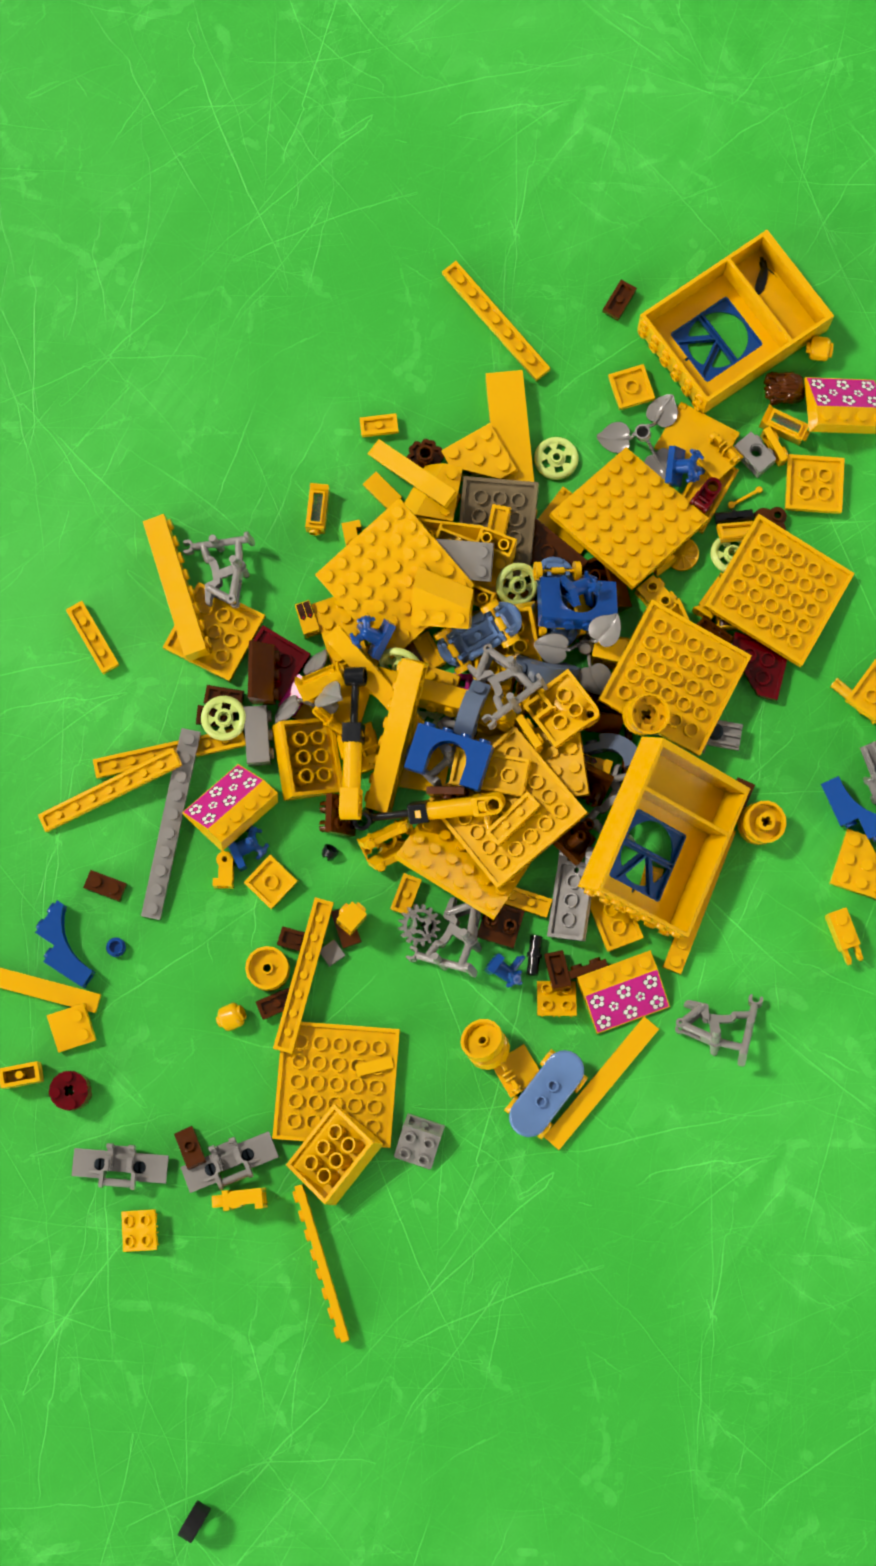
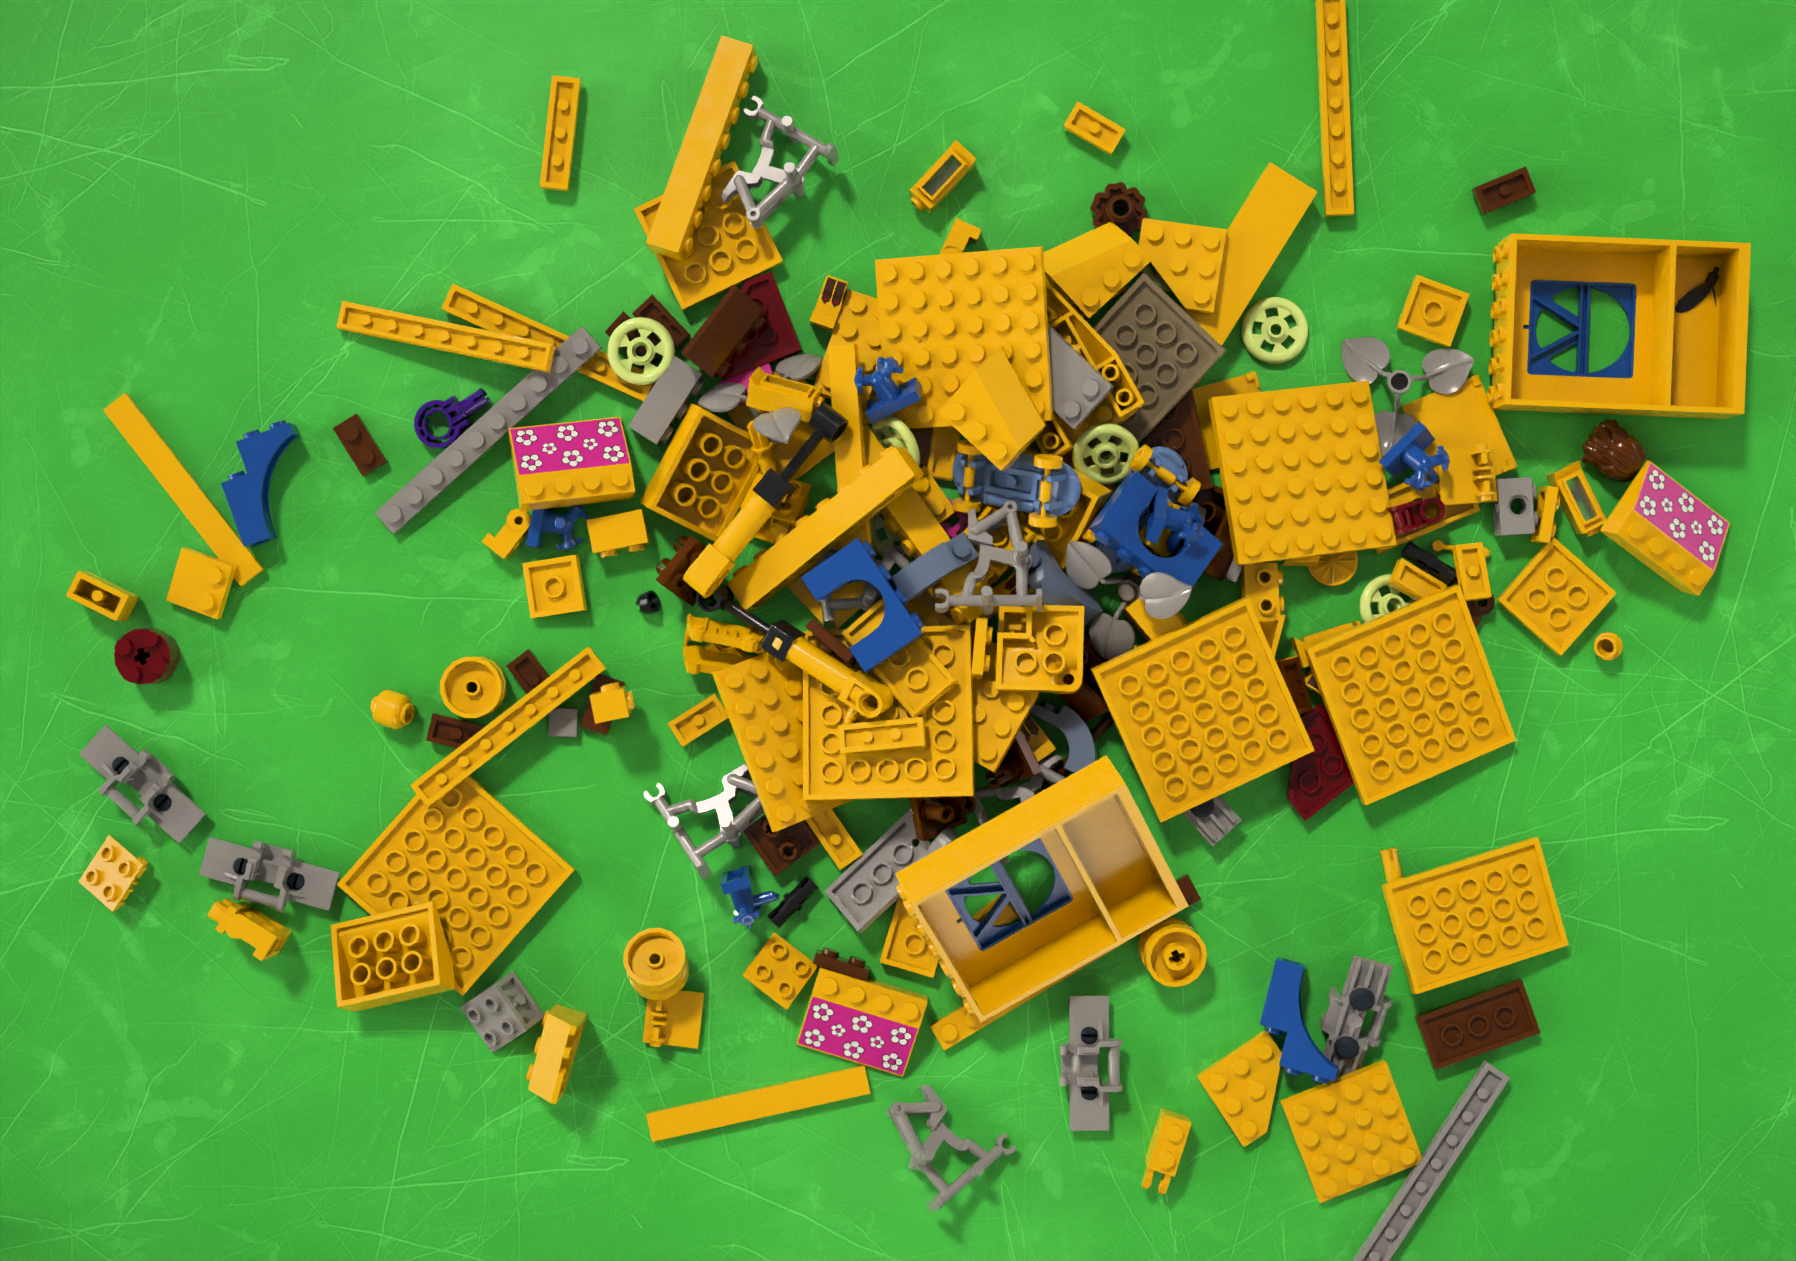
camera: 30 degrees right, 10 degrees up
(115, 947) = (320, 527): blue plate -> none
(139, 827) = (449, 407): none -> dark purple pin
(190, 1148) = (236, 824): reddish brown plate -> none
(284, 825) = (618, 532): none -> yellow brick
(323, 1271) = (285, 1075): yellow plate -> none
(374, 1066) = (513, 890): yellow window -> none
(381, 490) = (1036, 213): yellow tile -> none
(412, 473) = (1086, 223): yellow tile -> none
(428, 919) = (699, 768): light grey gear -> none
(466, 1138) = (555, 1052): none -> yellow wedge
(499, 518) = (1145, 359): yellow tile -> none
(546, 1093) = (683, 1071): medium blue piece -> none
(557, 971) = (805, 941): reddish brown plate -> none
(633, 597) = (1232, 572): none -> light grey tile
(656, 714) = (1142, 744): yellow wheel -> none
(759, 502) = (1472, 571): none -> yellow plate
(760, 923) = (1080, 1062): none -> light grey piece
(819, 348) = (1695, 436): yellow head -> none
(862, 488) = (1608, 646): none -> yellow plate

